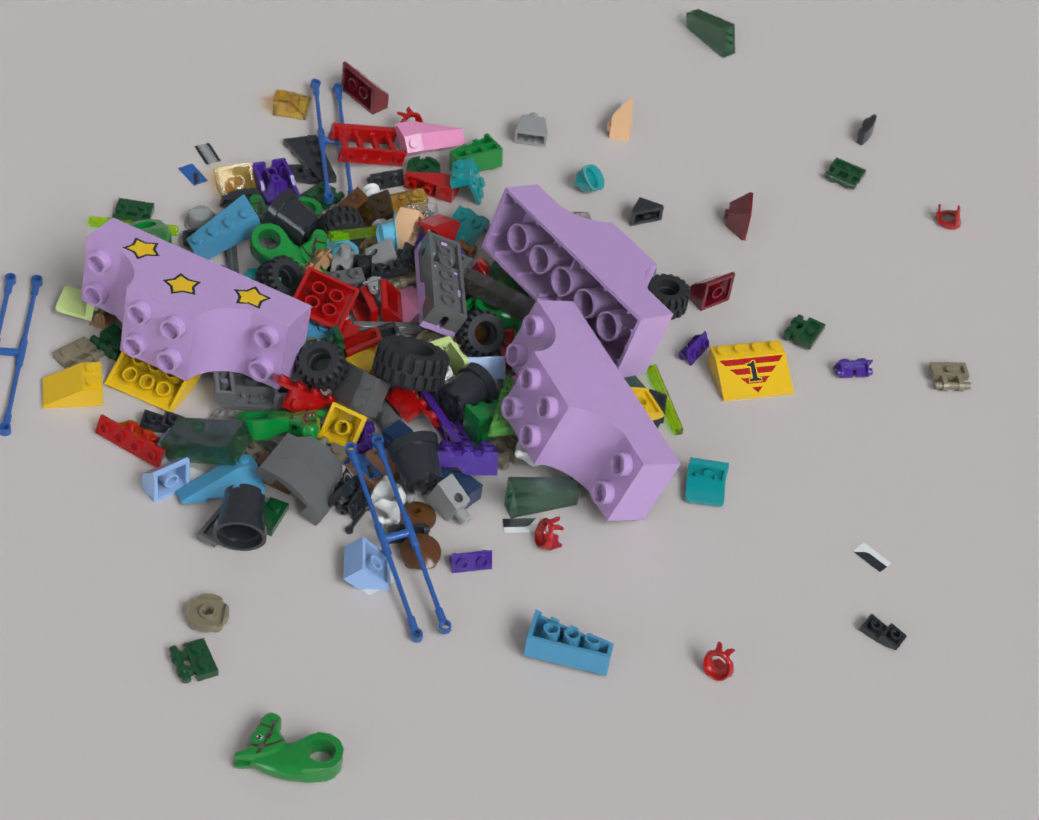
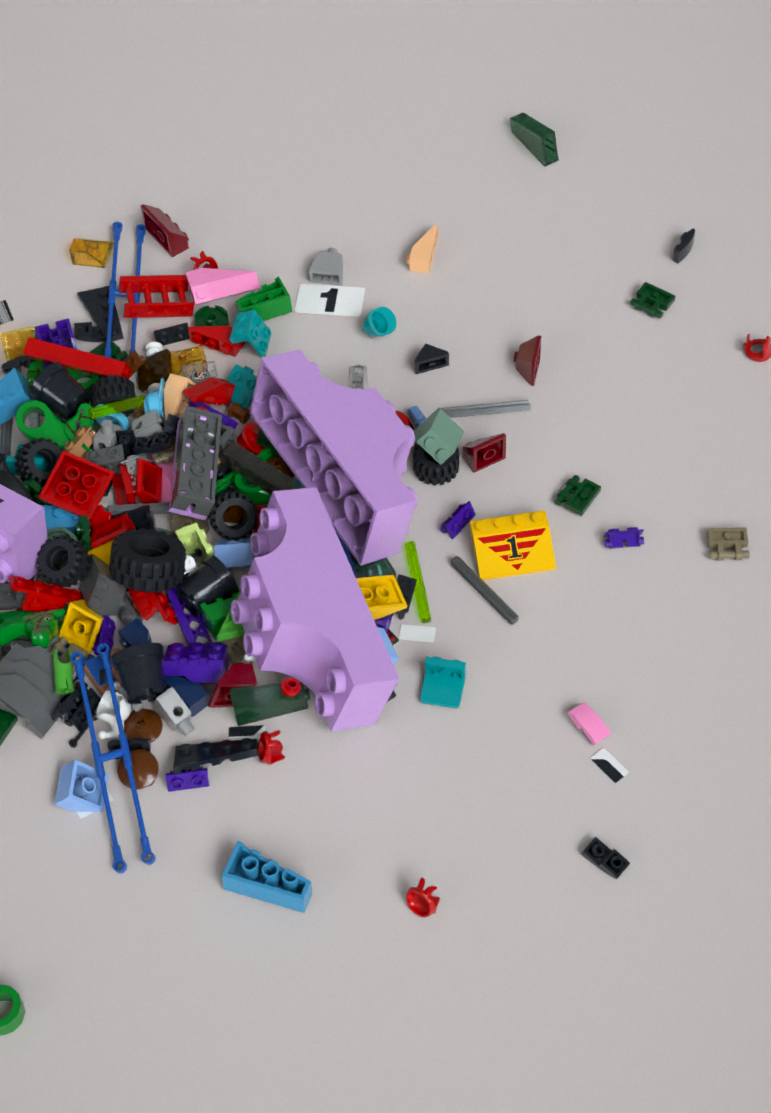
camera: 15 degrees right, 10 degrees up
(310, 194) = (75, 359): none -> red brick
(338, 462) = (63, 674): none -> bright green piece
(497, 538) = (214, 753): none -> black wing
(512, 467) = (236, 676): none -> dark red slope
(536, 159) = (330, 300): none -> white sticker
(564, 479) = (290, 691): none -> red plate
(674, 270) = (438, 435): none -> sand green slope
(677, 444) = (417, 633): none -> white sticker
(700, 257) = (490, 408): none -> axle
(730, 408) = (484, 590): none -> dark grey axle
(846, 516) = (590, 723): none -> bright pink slope

